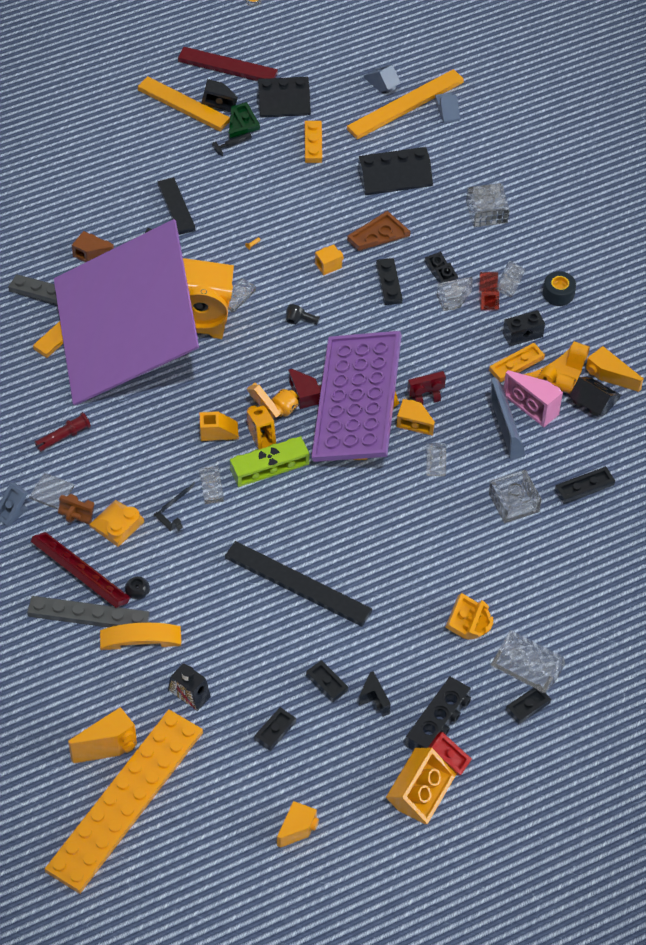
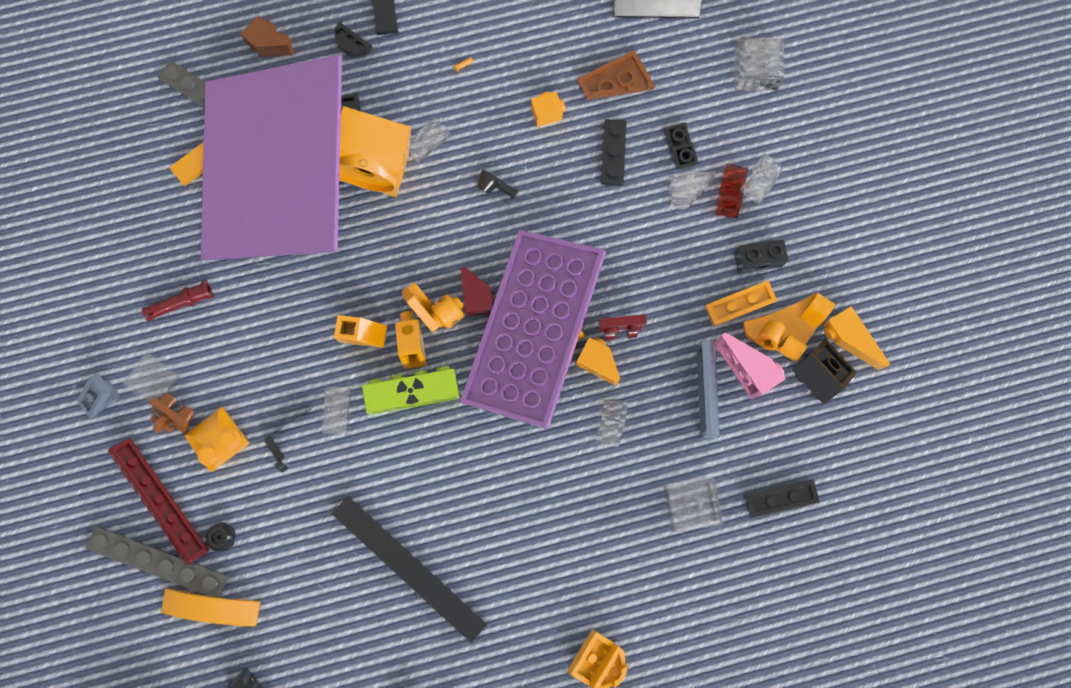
camera: 10 degrees right, 25 degrees up
(559, 288) = (821, 196): black wheel -> none

